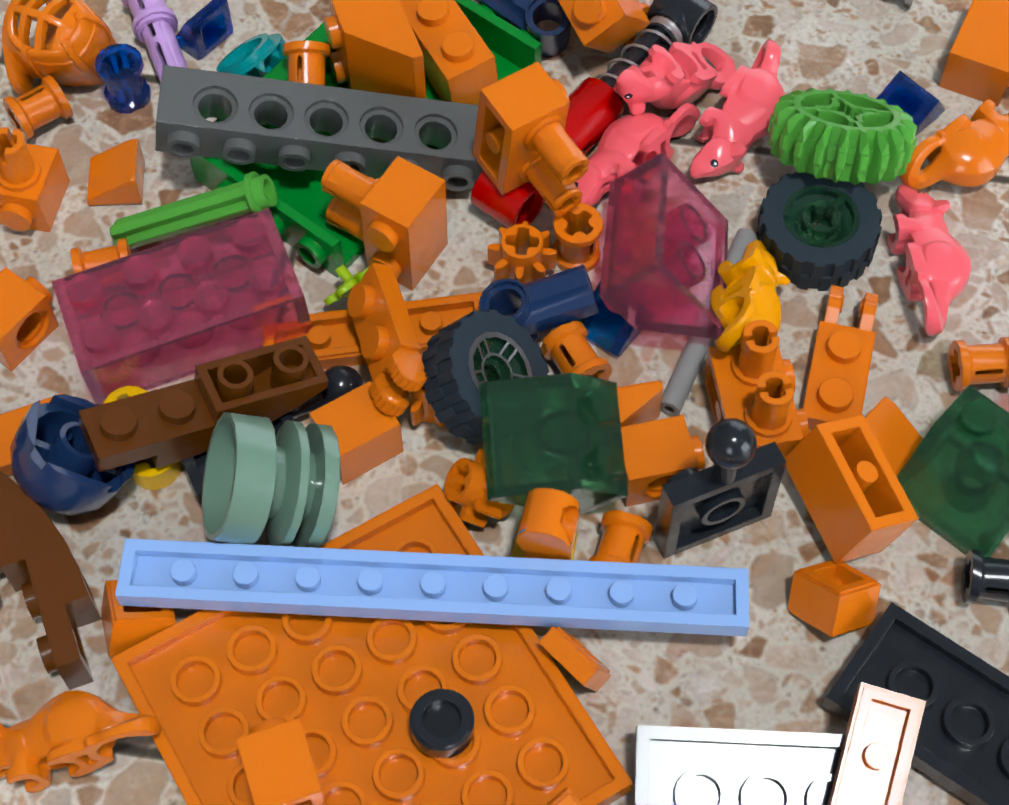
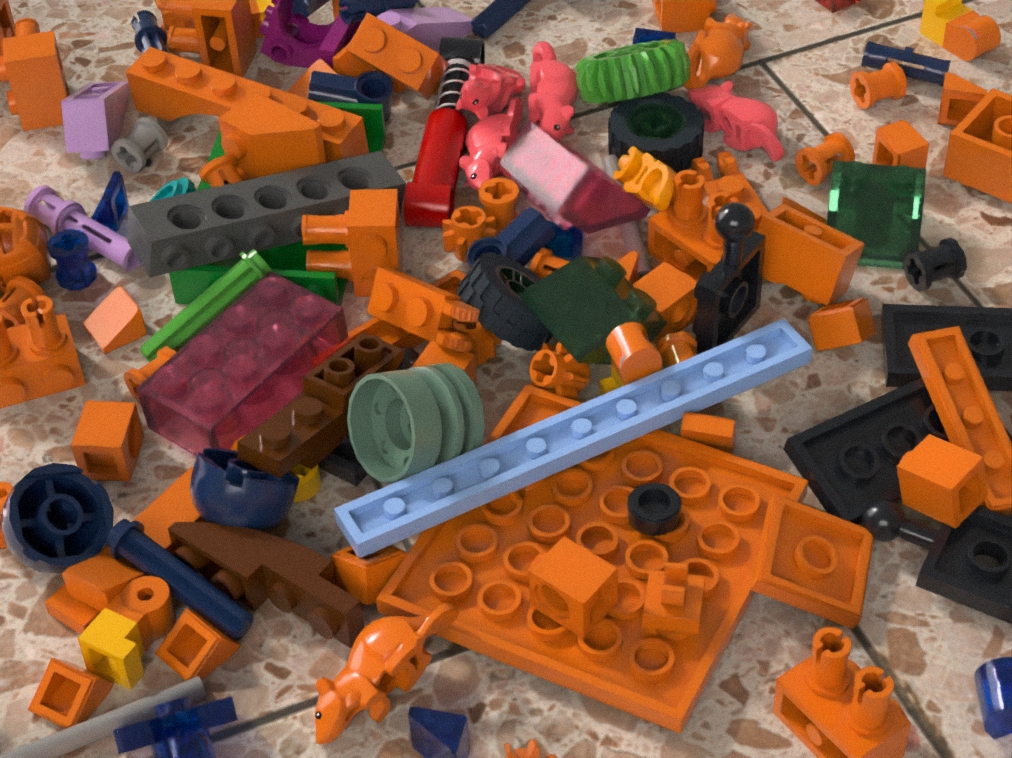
camera: 30 degrees left, 15 degrees down
(344, 289) = (359, 301): lime plant -> none
(525, 139) = (426, 140): orange brick -> none

